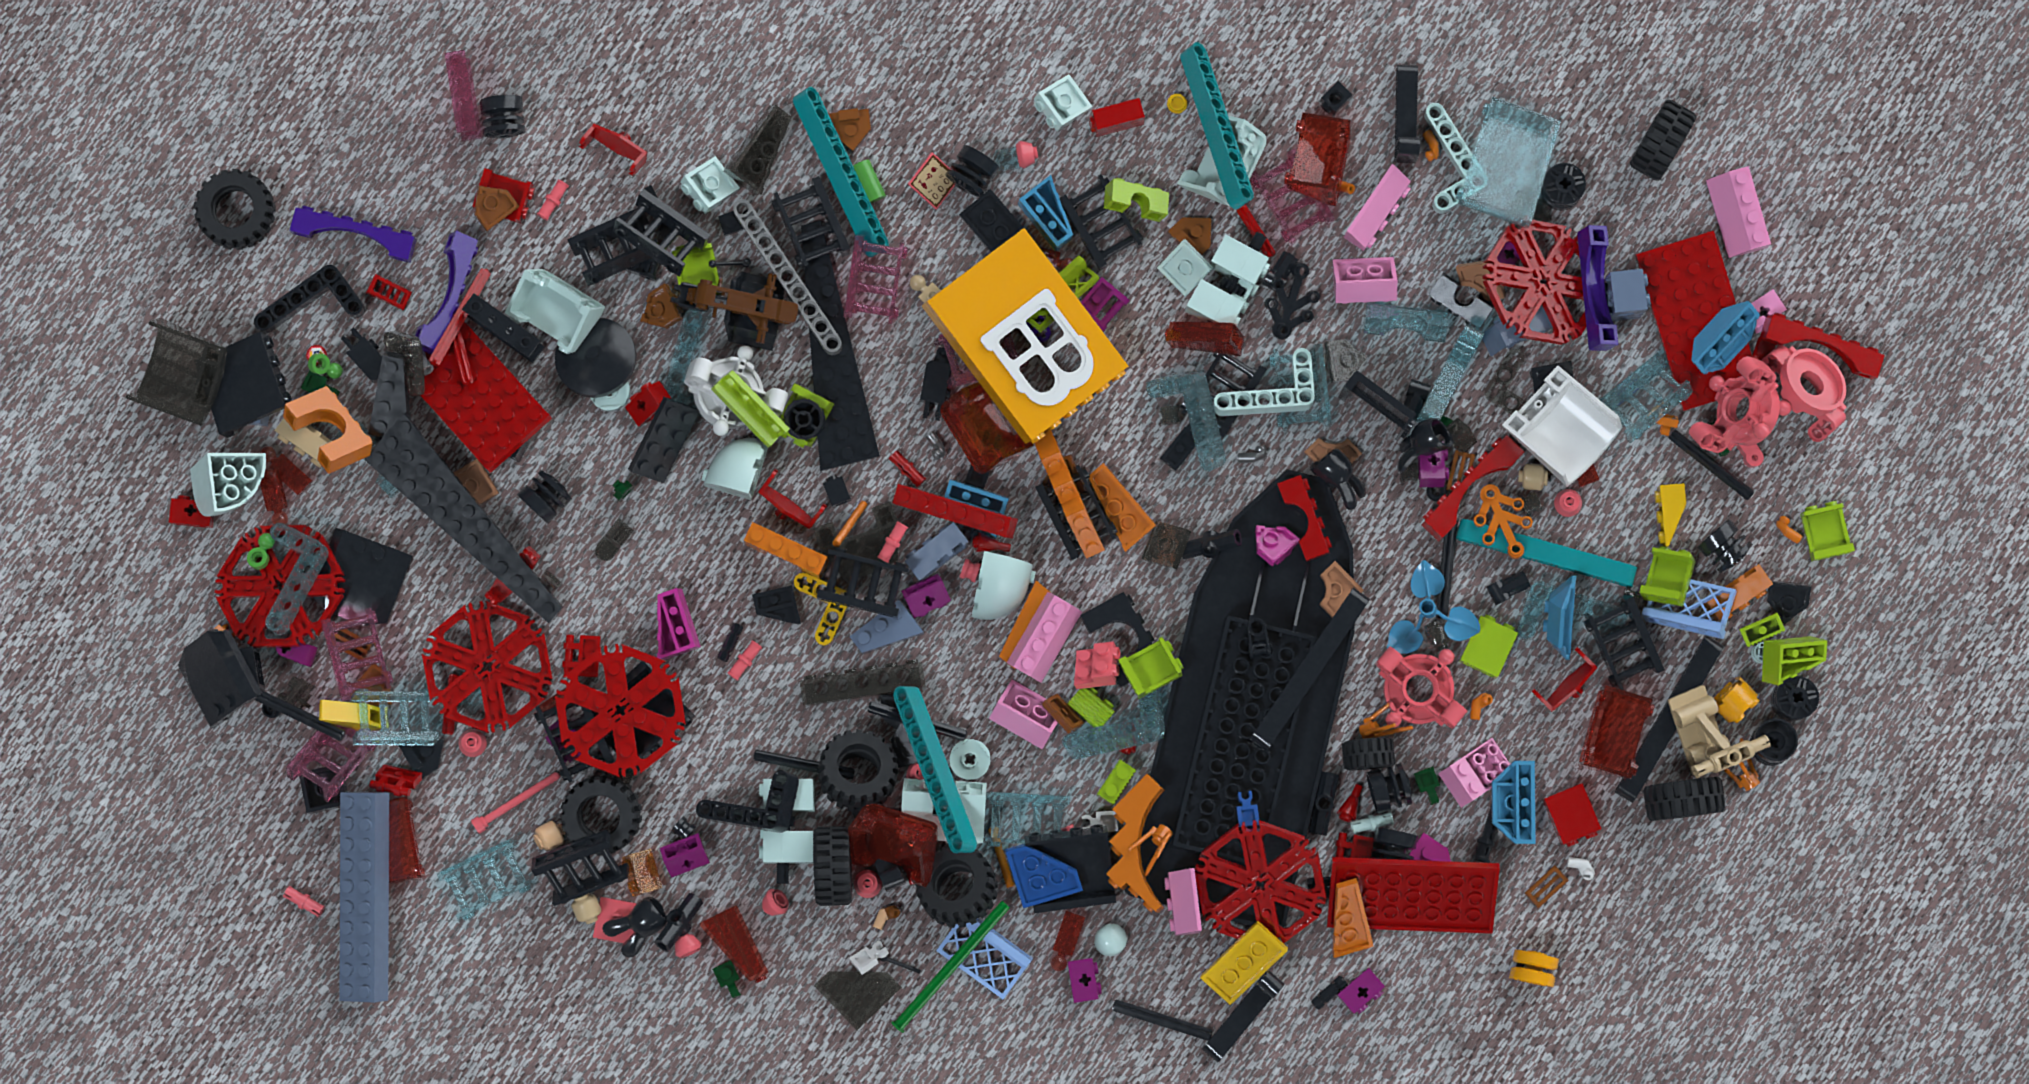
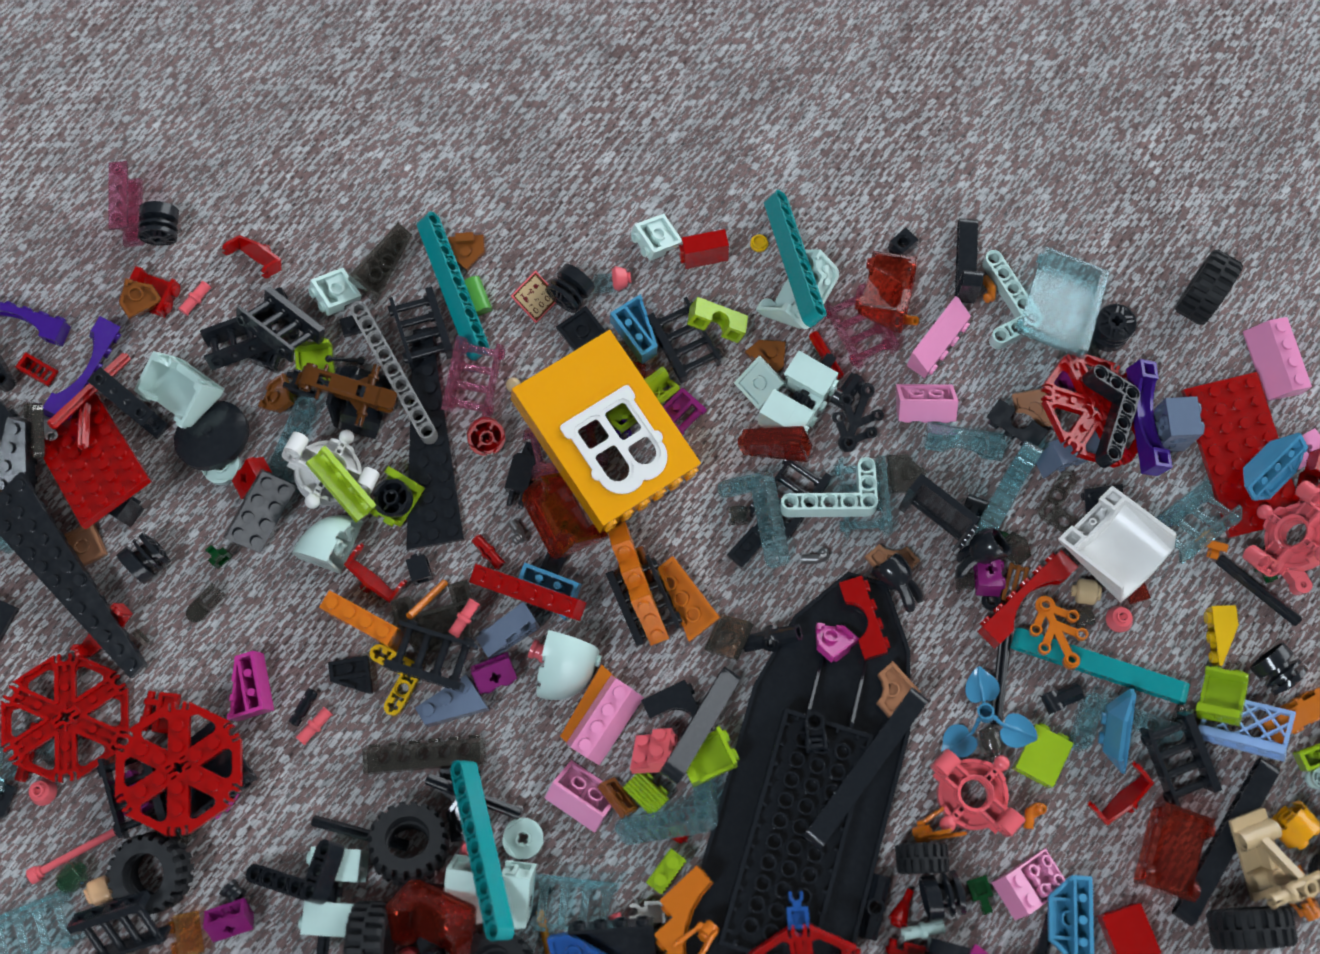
camera: 10 degrees right, 10 degrees down
(518, 824) = (71, 877): none -> clear green head
(894, 344) = (485, 436): none -> red cylinder
(985, 543) = (559, 626): red cone -> none
(1143, 636) = (700, 725): none -> beam
(1563, 289) = (1121, 413): none -> black beam

